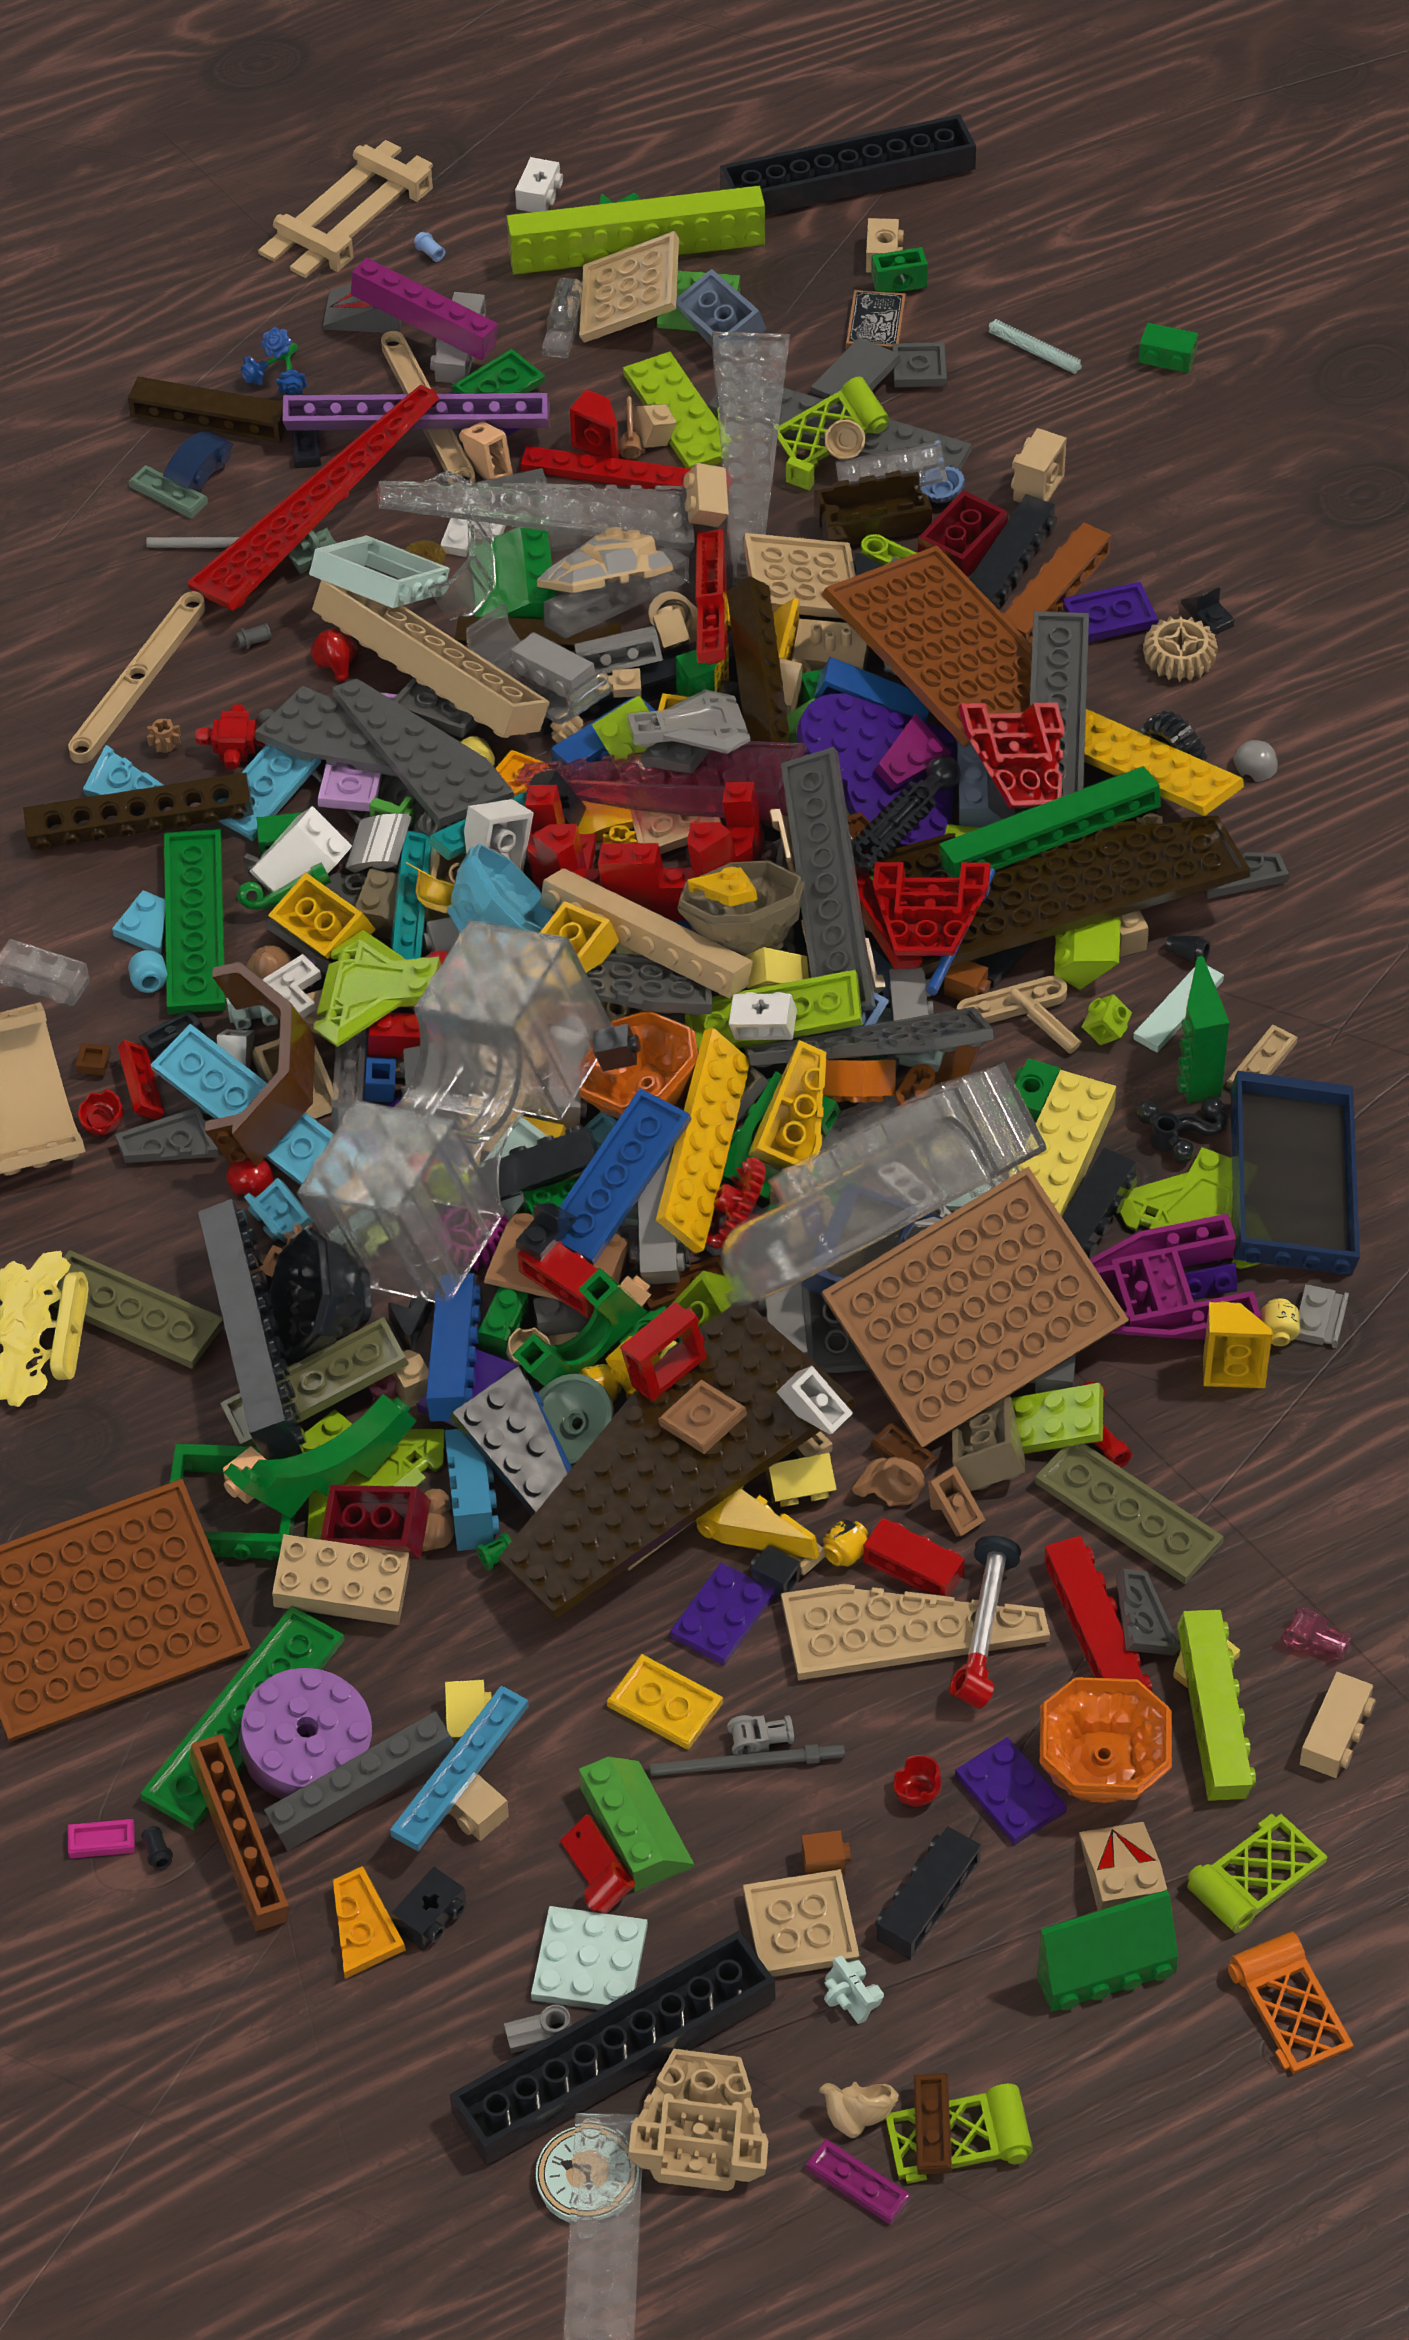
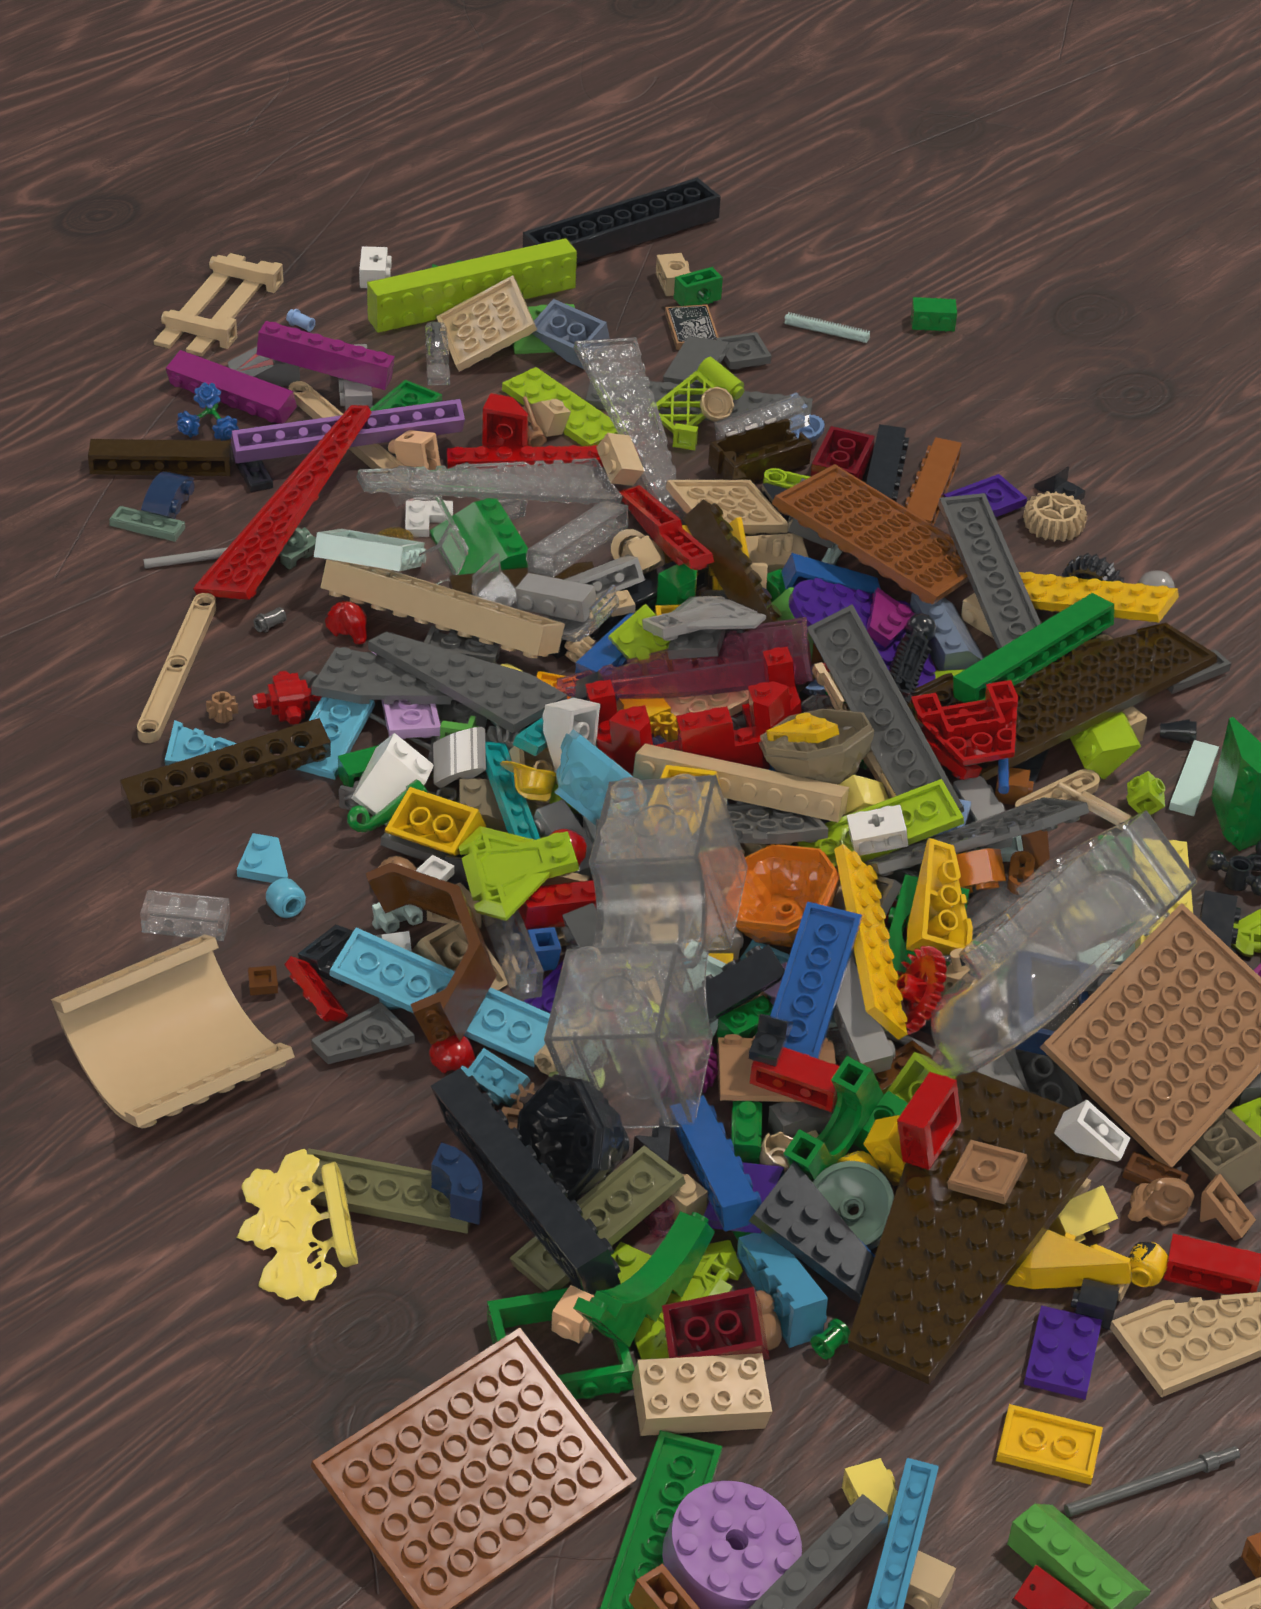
camera: 20 degrees left, 10 degrees down
(101, 1112) = (291, 1023): red hair -> none
(194, 920) = (312, 851): green plate -> none
(194, 1315) = (459, 1181): none -> dark blue brick
(316, 329) = (236, 388): none -> magenta brick
(606, 557) = (567, 511): wedge -> none
(616, 1047) = (761, 876): black brick -> none
(759, 1733) = (1152, 1455): light grey connector -> none
(1018, 750) = (983, 597): red wedge -> none
(1039, 466) = (879, 402): tan brick -> none

